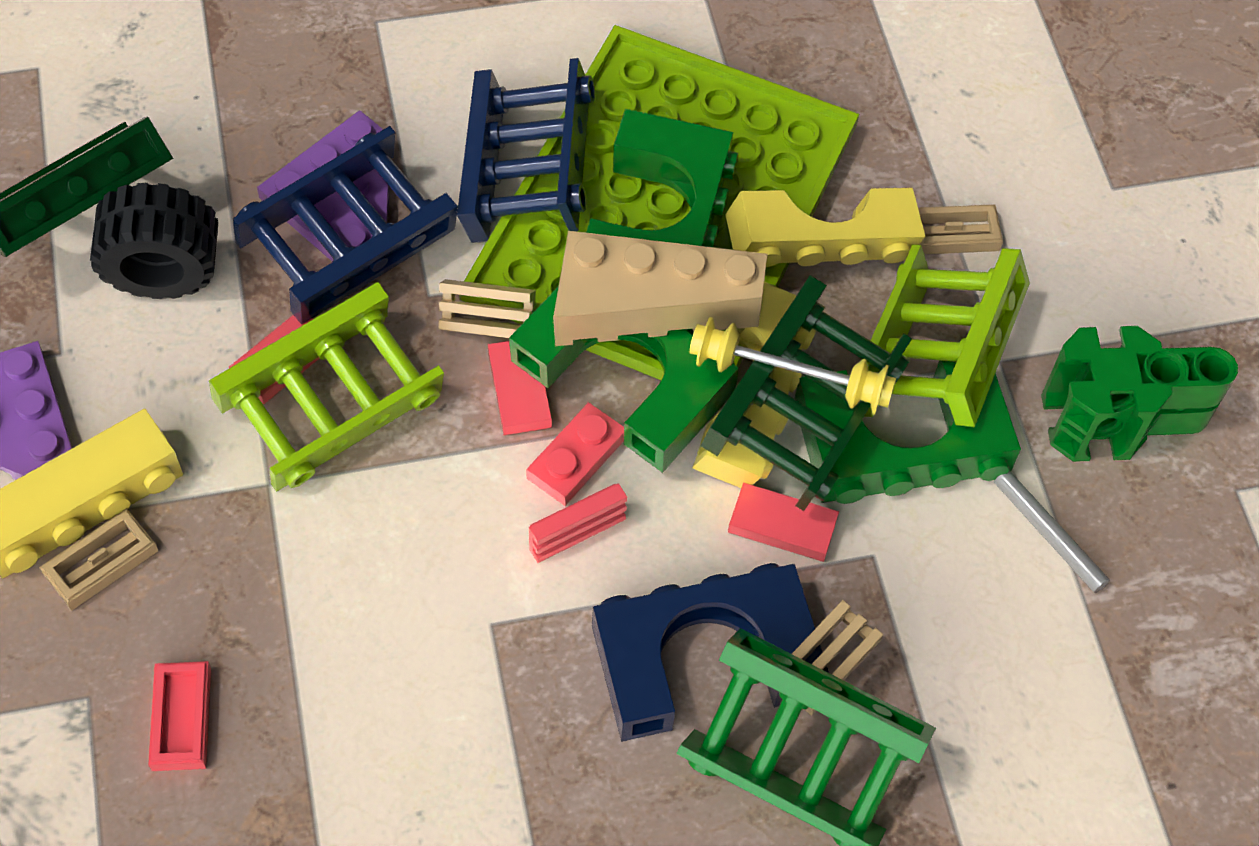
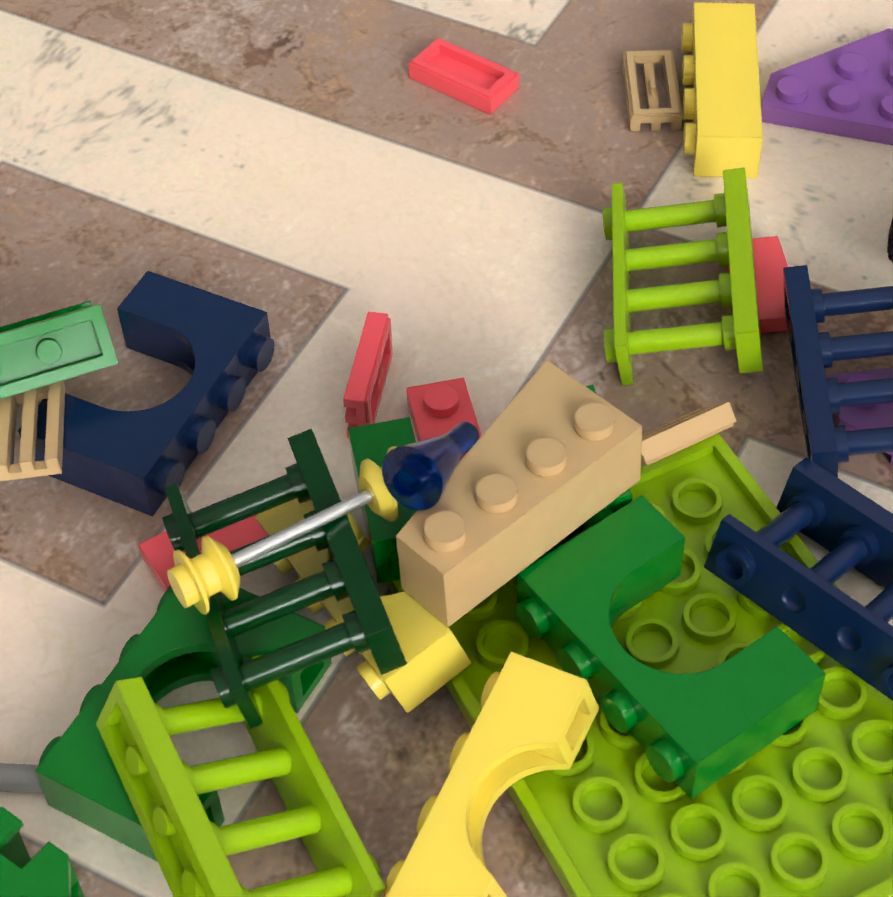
camera: 135 degrees right, 10 degrees down
(711, 300) = (421, 470): none -> clear blue cone

